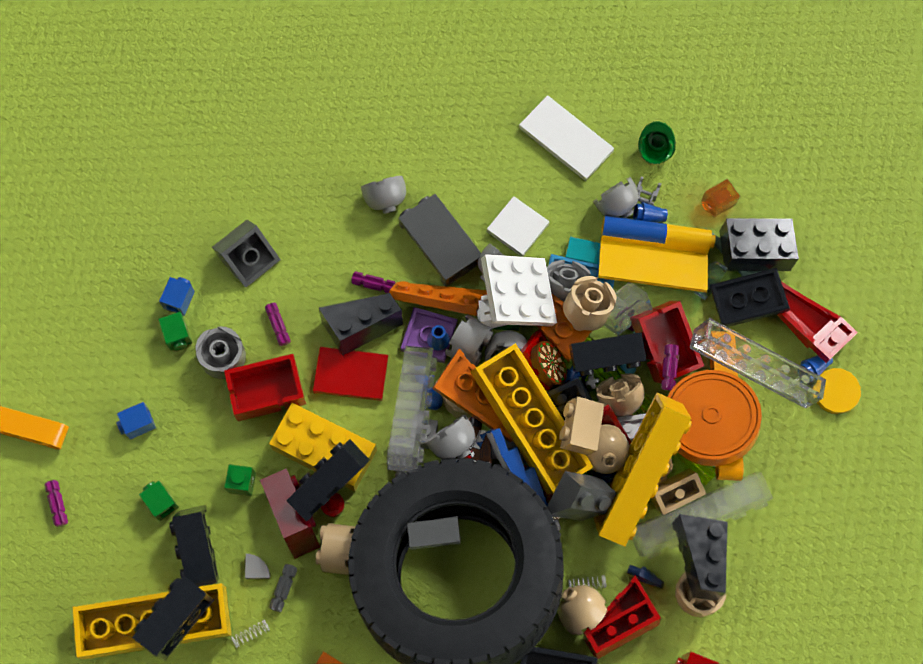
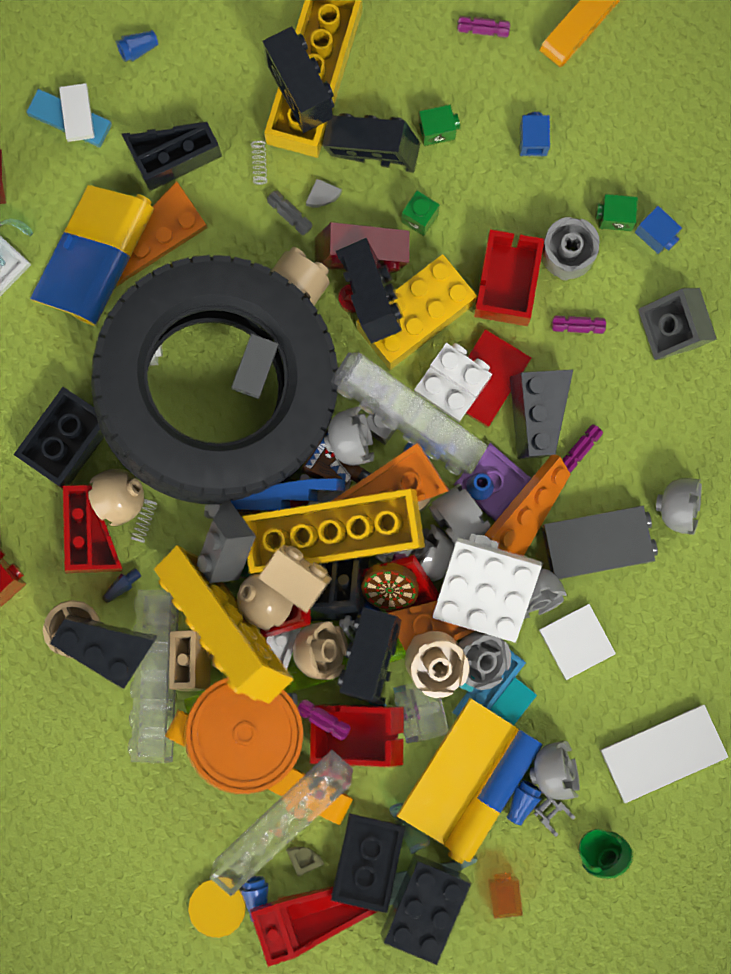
camera: 120 degrees right, 10 degrees up
(366, 393) = (453, 381): none -> white plate
(771, 342) = (304, 859): none -> olive tile

